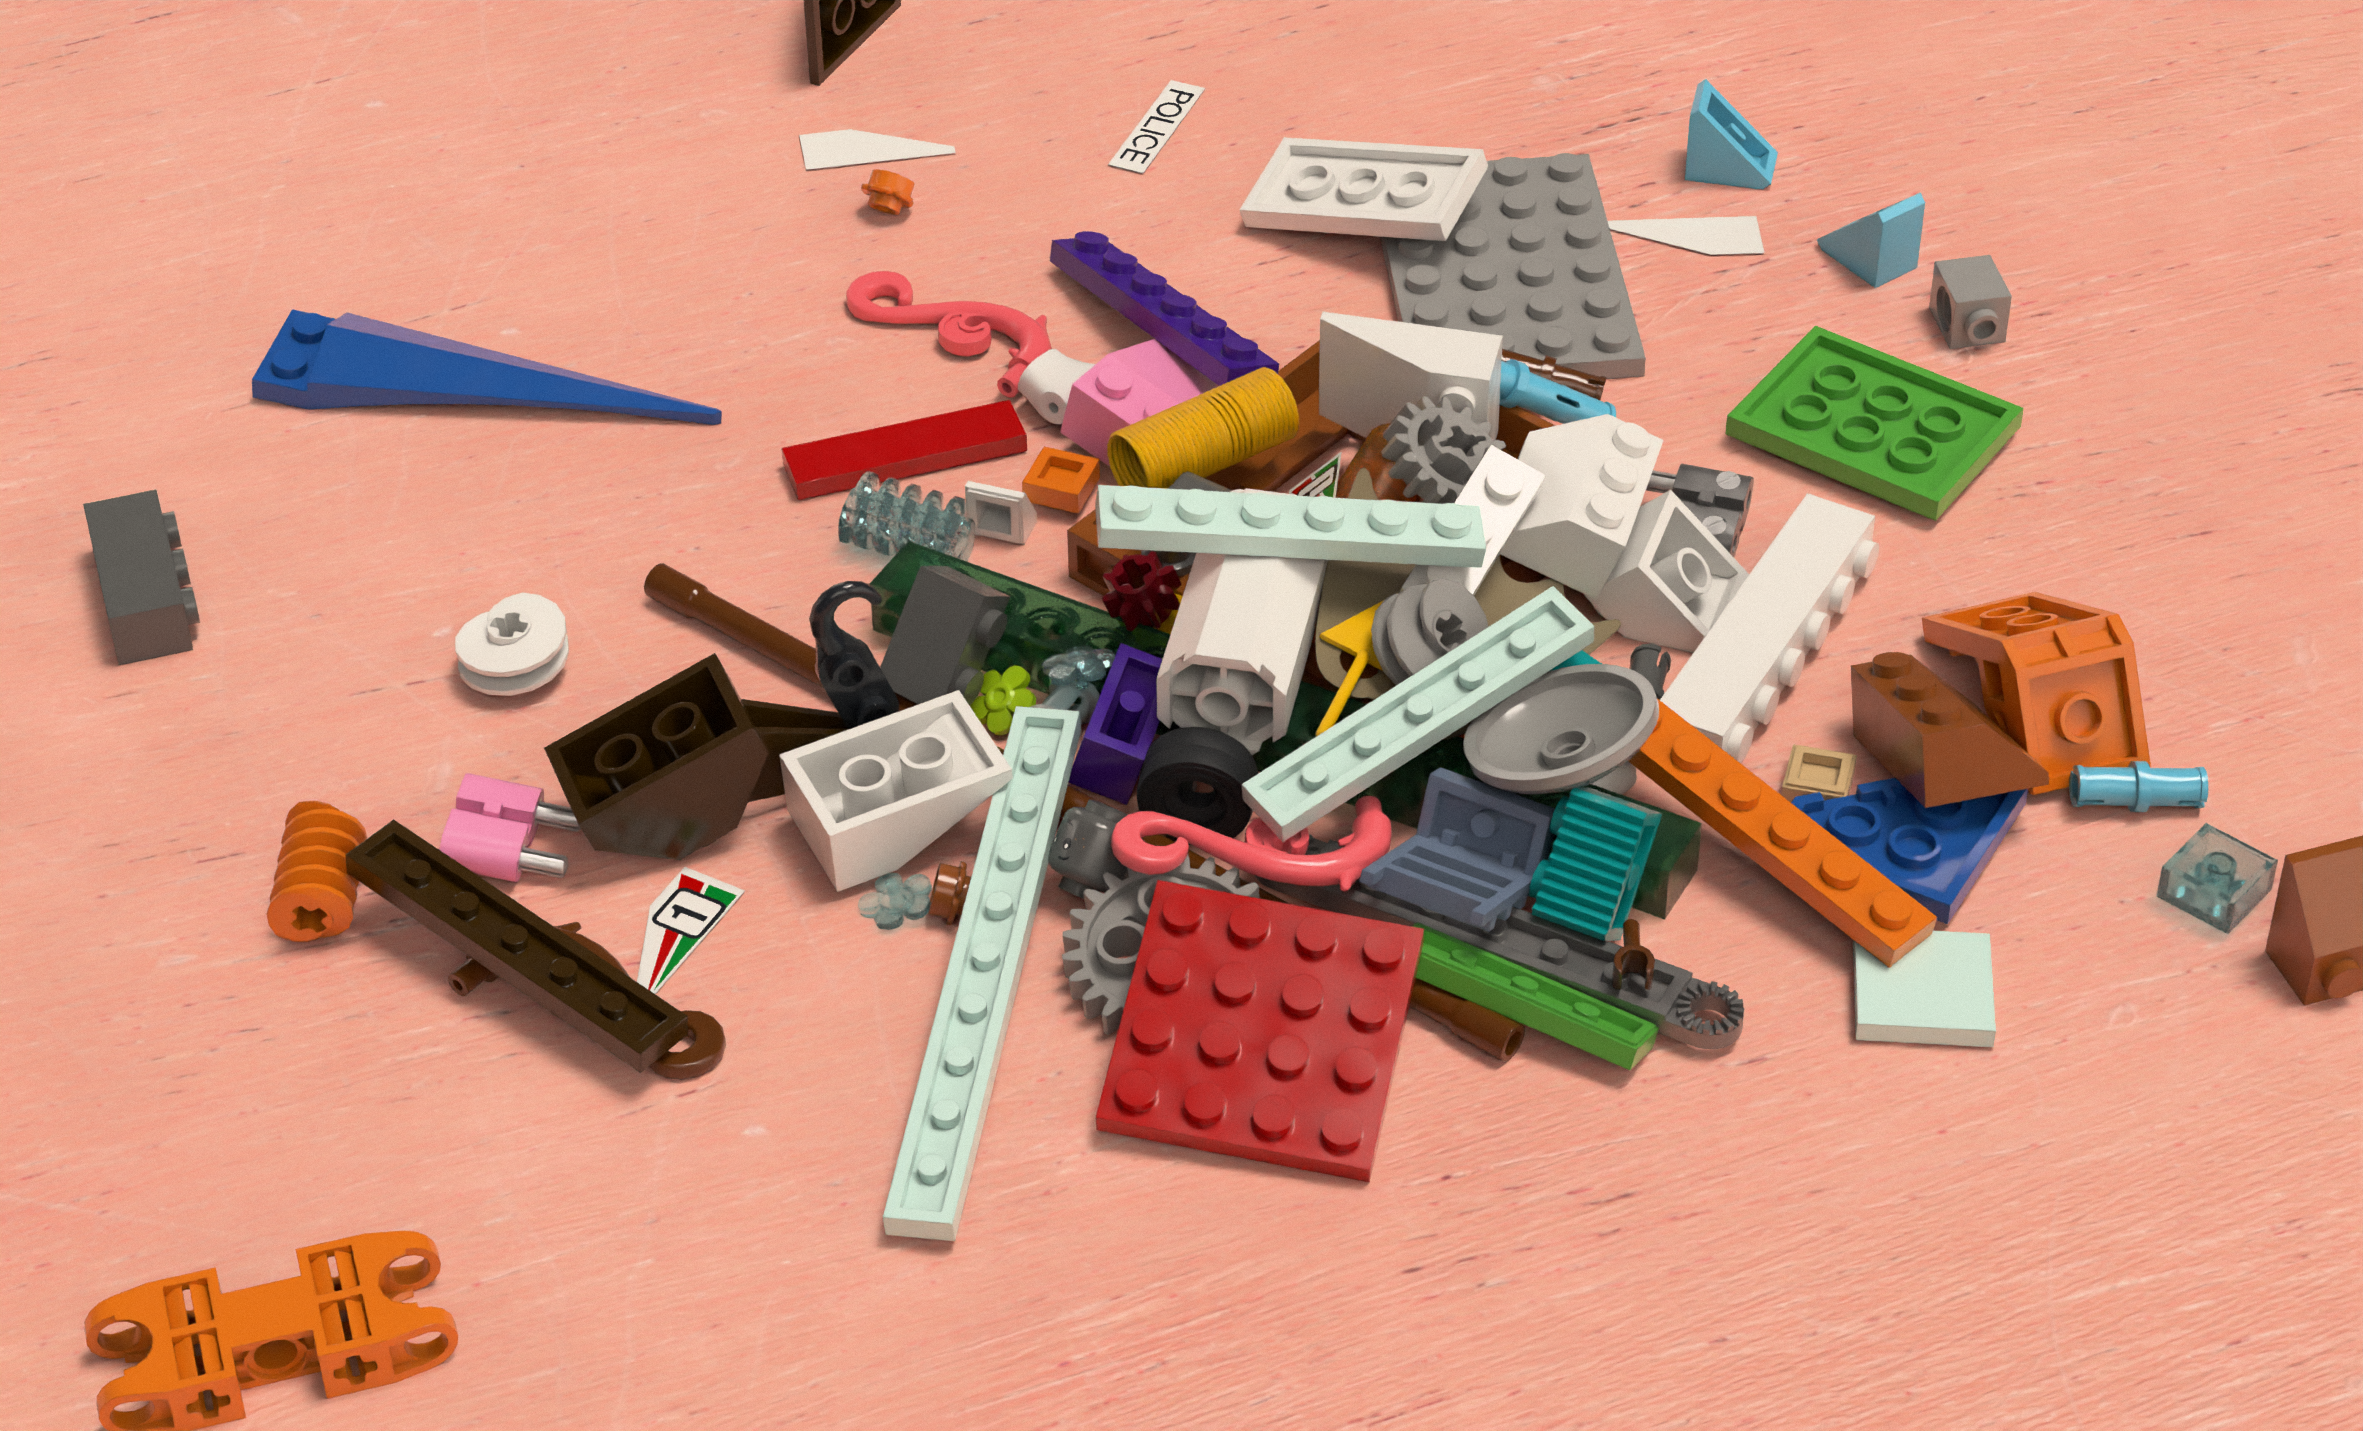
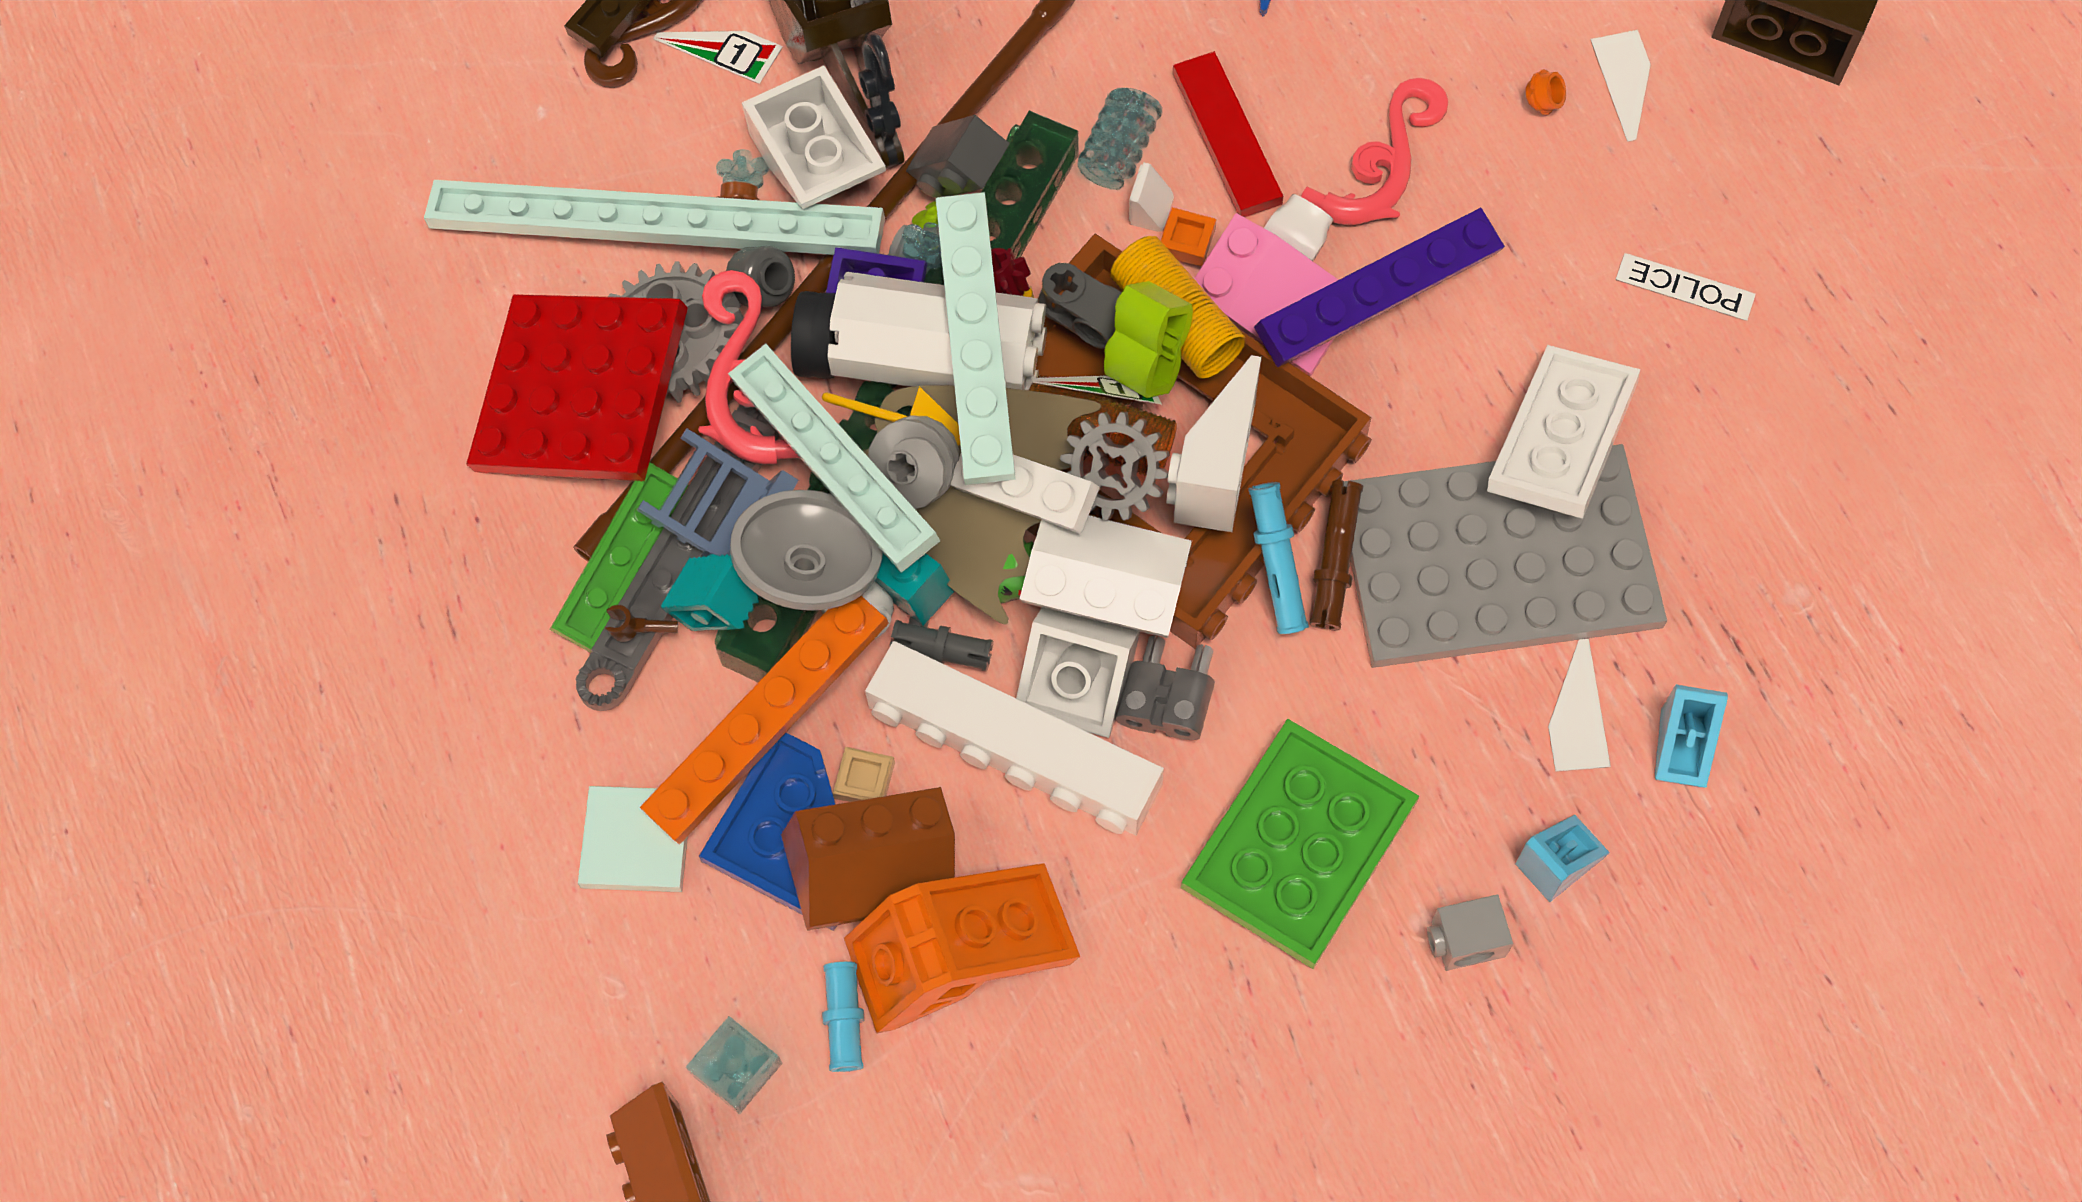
camera: 90 degrees right, 25 degrees up
(1261, 436) = (1147, 339): none -> lime brick

